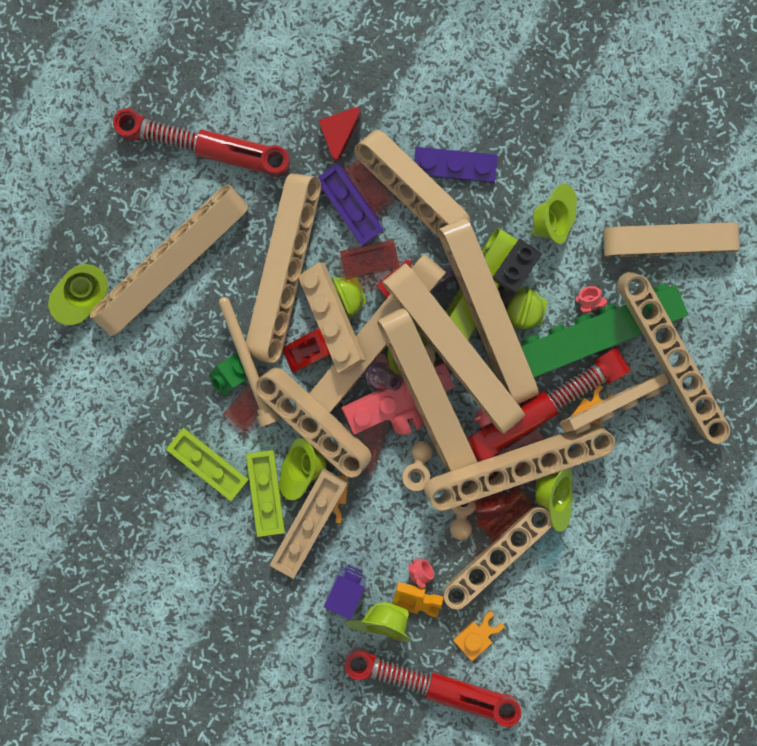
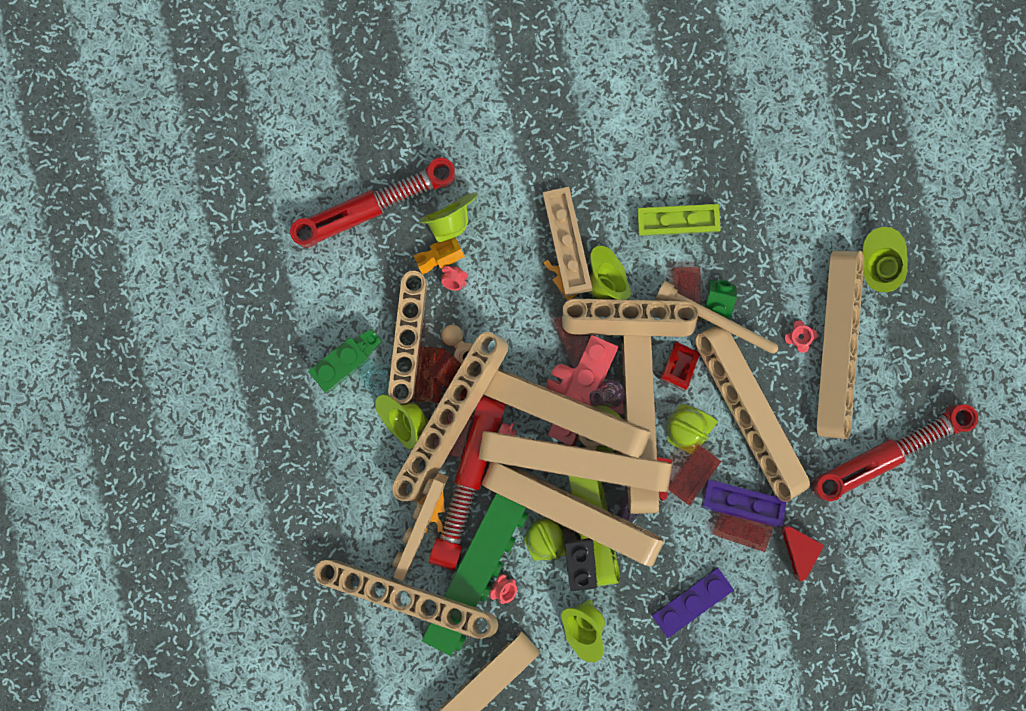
camera: 140 degrees right, 0 degrees up
(186, 289) = (808, 336): none -> coral plate
(265, 493) = (617, 236): lime plate -> none
(331, 318) = (684, 405): tan plate -> none
(346, 591) = (498, 215): dark purple brick -> none
(408, 181) = (716, 558): tan beam -> none
(422, 453) = (529, 365): tan plate -> none
(475, 638) = (371, 265): light orange plate -> none
(562, 582) = (344, 360): none -> green hinge

